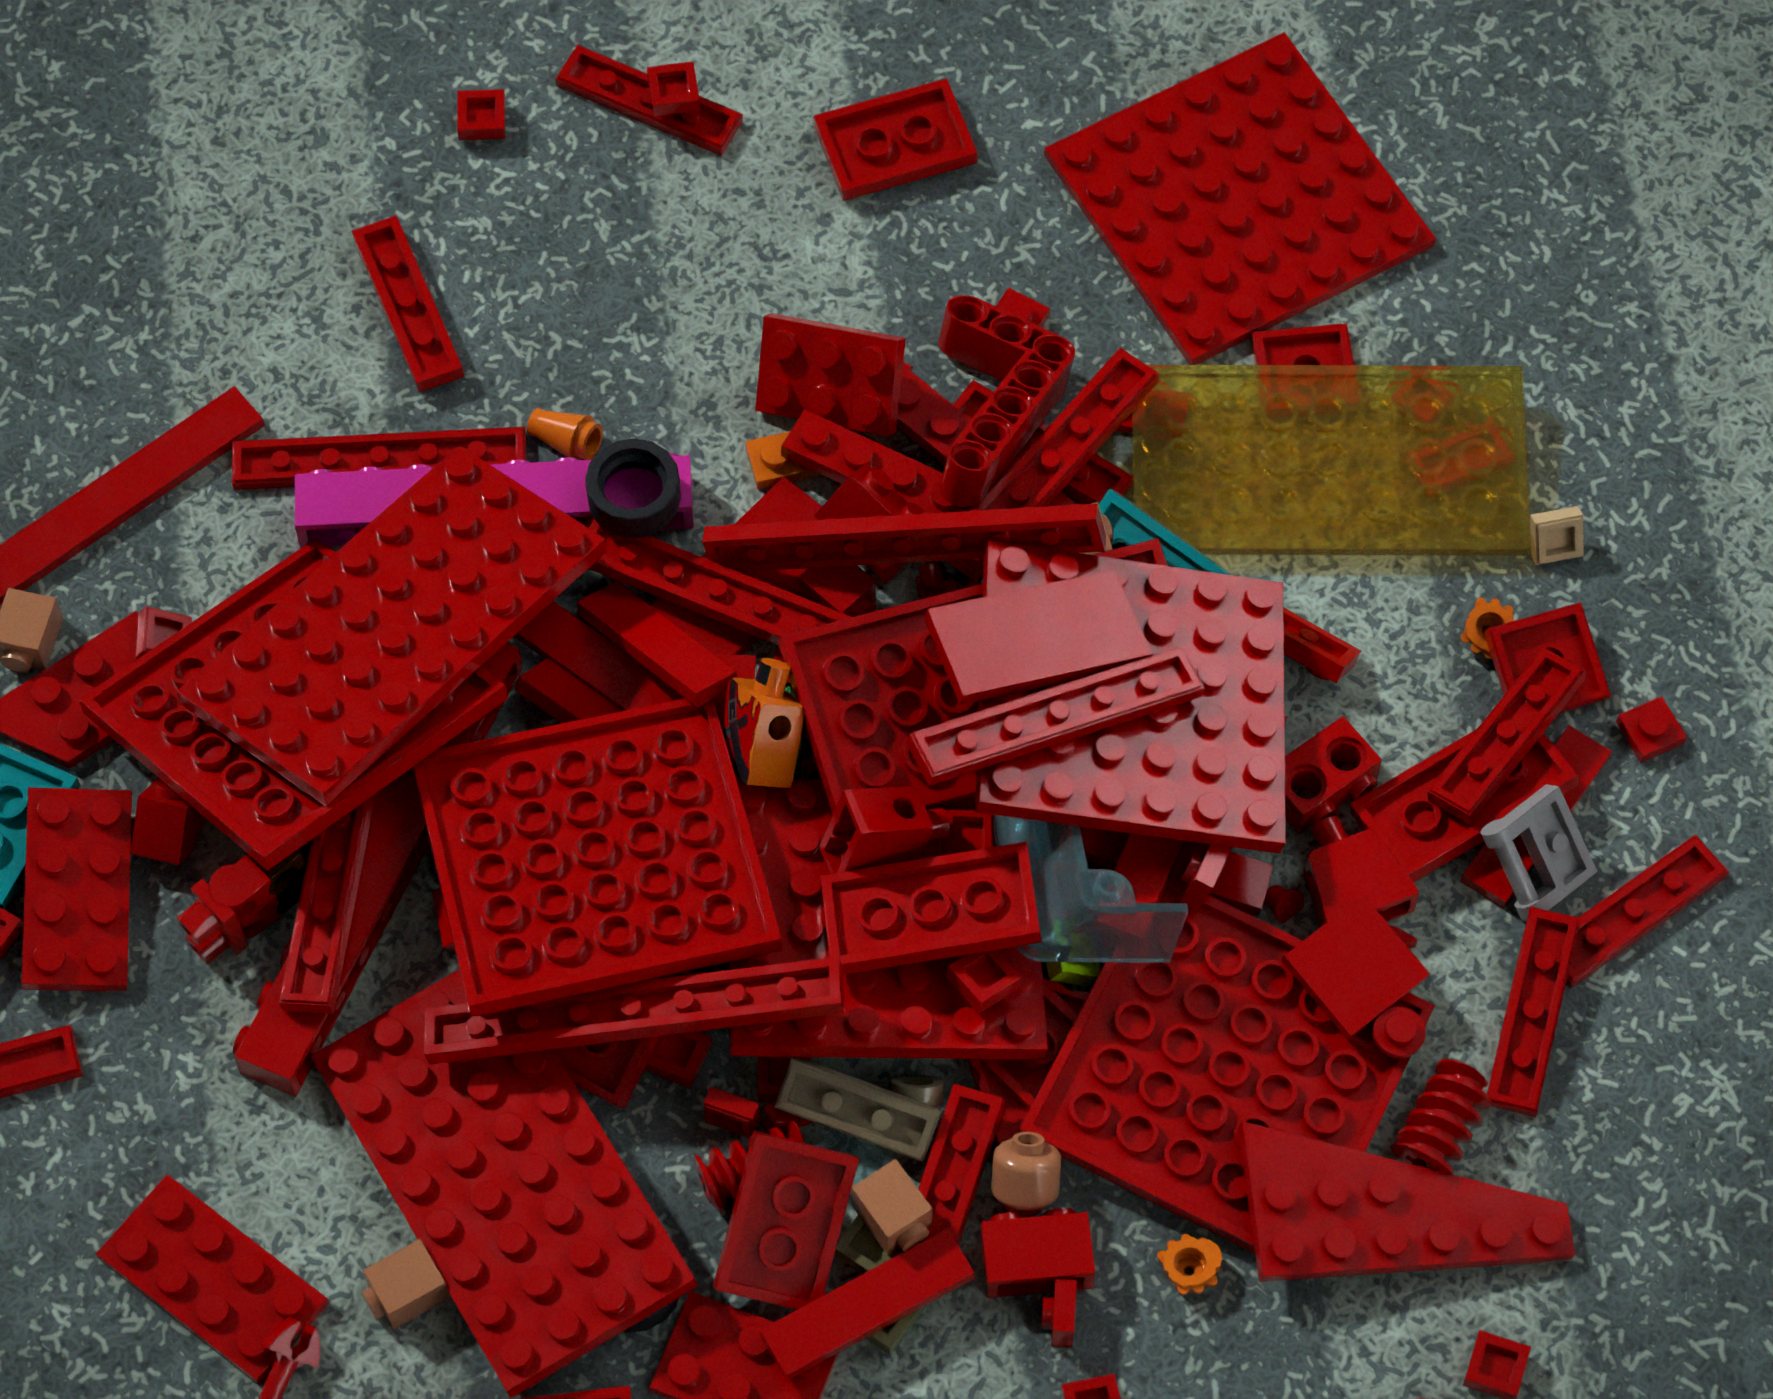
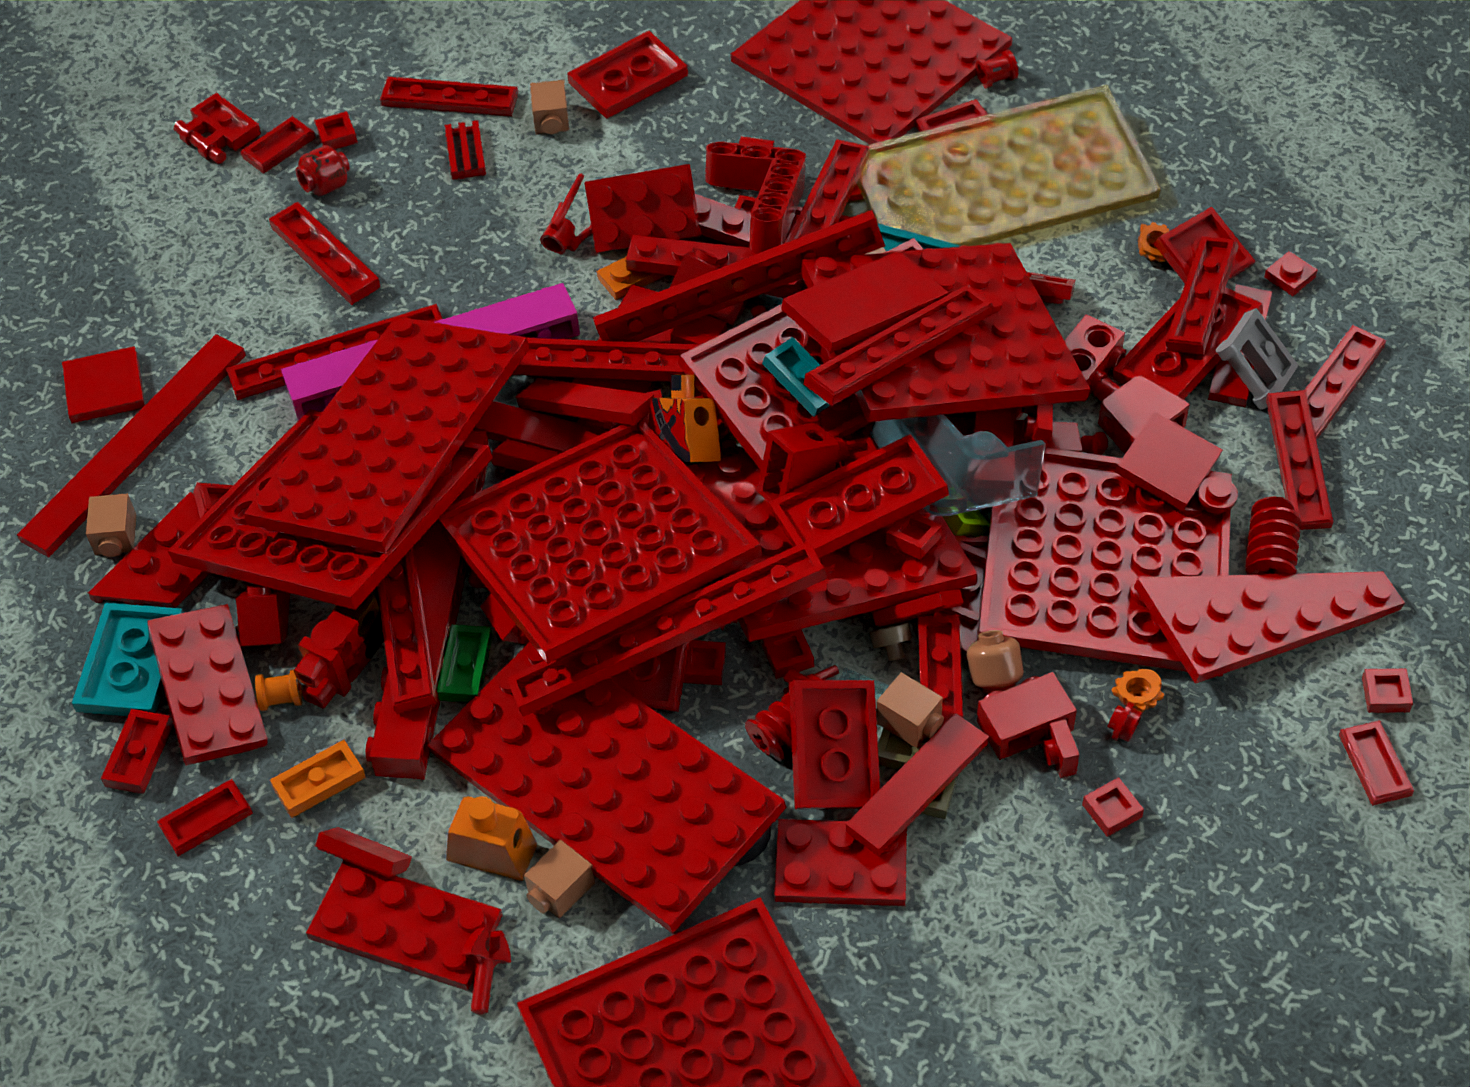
camera: 15 degrees left, 10 degrees down
(75, 416) = (103, 384): none -> red tile
(156, 925) = (278, 690): none -> orange bush
(169, 1058) = (317, 778): none -> orange plate
(192, 1173) = (363, 852): none -> red tile
(336, 1205) = (486, 835): none -> orange torso
(343, 55) = (224, 122): none -> red plate
(391, 959) = (464, 663): none -> green plate
(401, 109) = (278, 144): none -> red tile
(443, 176) = (322, 170): none -> red head
(567, 432) = (466, 297): orange cone -> none
(627, 455) = (529, 287): black tyre -> none
(646, 162) = (463, 131): none -> red tile
(673, 88) = (465, 79): red plate -> none
(718, 366) = (560, 232): none -> red plant
(731, 1112) = (760, 688): red tile -> none
(771, 164) = (549, 107): none -> nougat brick
(858, 1108) = (854, 654): dark tan tile -> none
(920, 694) = (789, 365): none -> teal plate
(962, 1073) = (918, 608): none -> red tile
(1154, 1302) = (1124, 721): none -> red plate
(1393, 284) = (1006, 62): none -> red bush
(1556, 535) = (1174, 177): tan tile -> none

